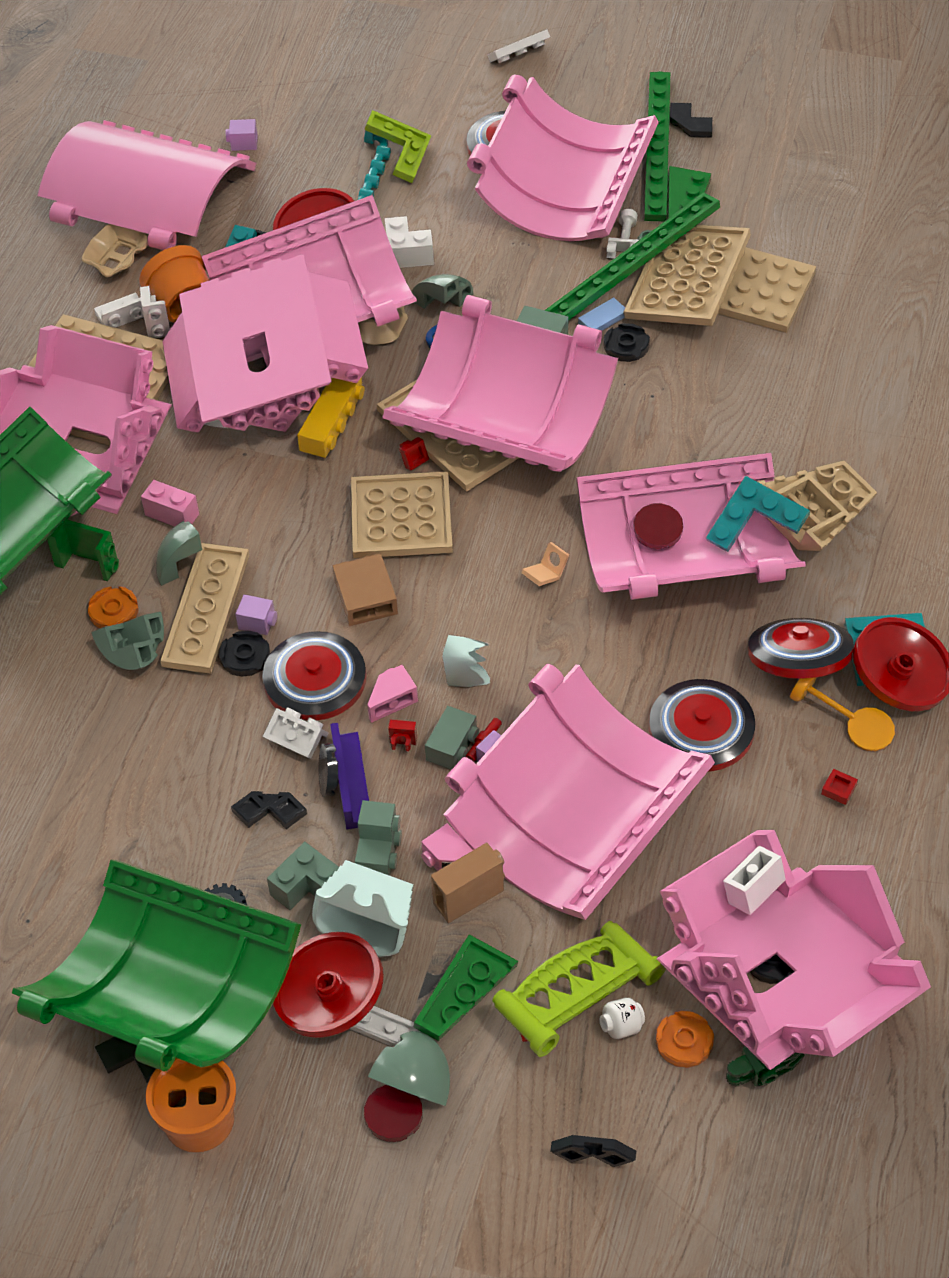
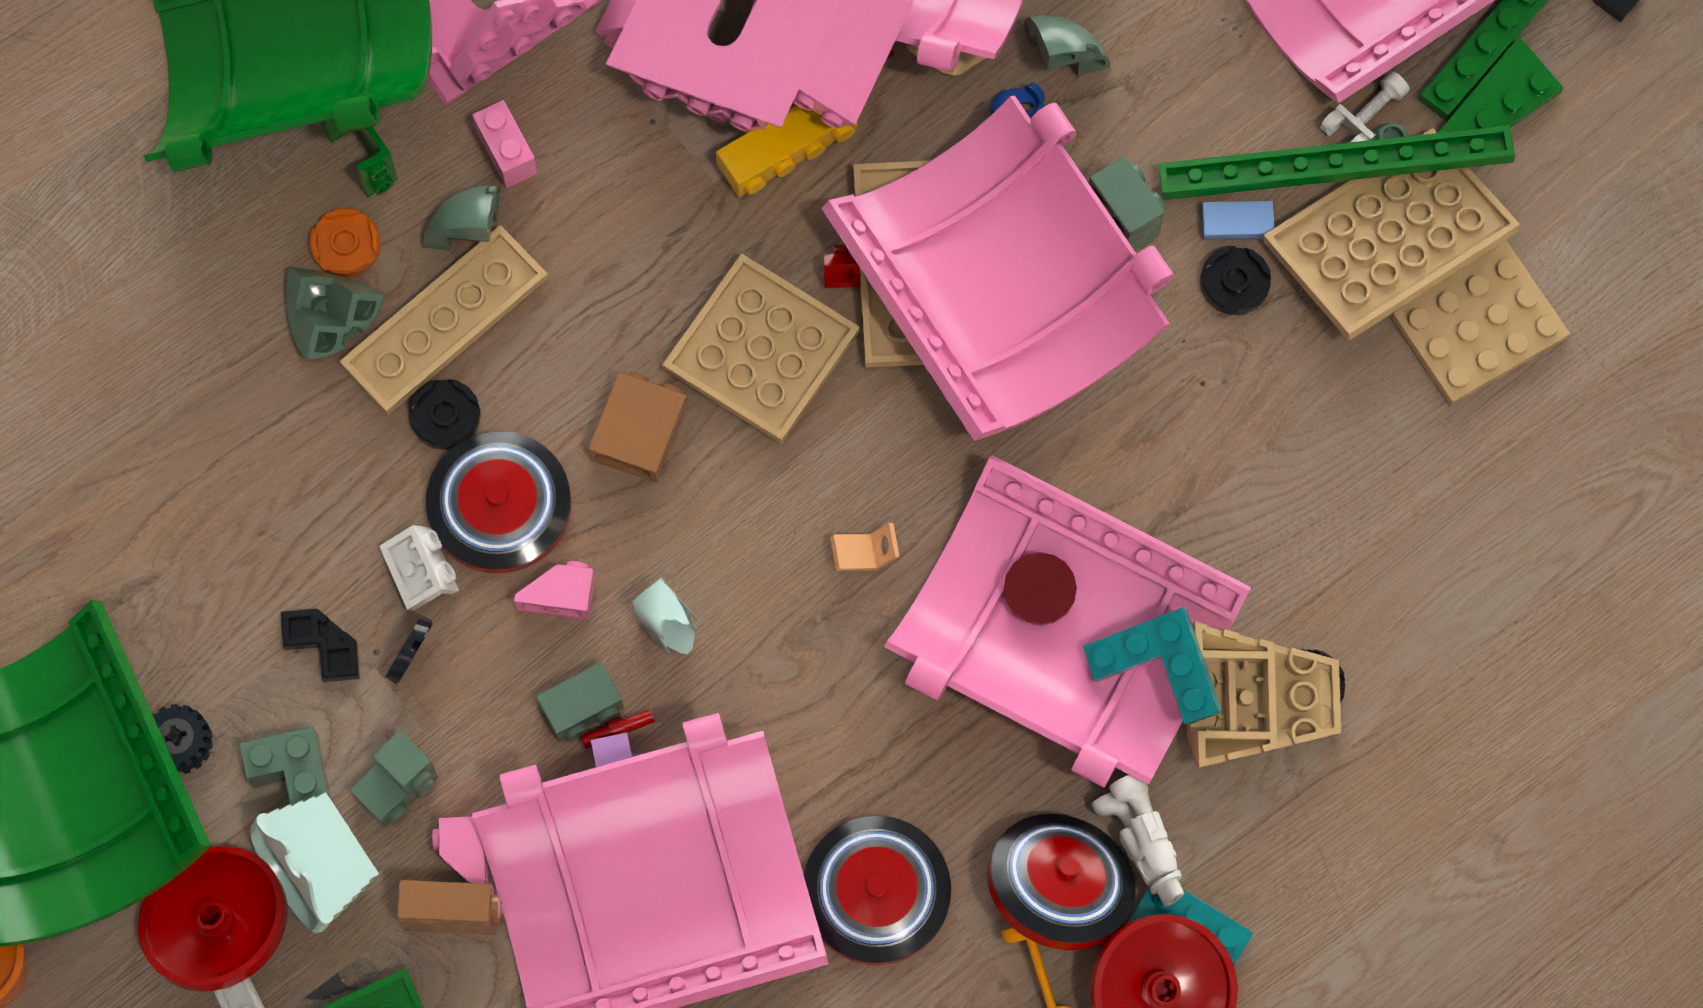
camera: 30 degrees right, 20 degrees up
(256, 614) = (490, 373): lavender brick -> none
(350, 774) = (434, 670): dark purple fence -> none
(402, 733) = (532, 655): red tile -> none
(825, 599) = (1143, 836): none -> white piece

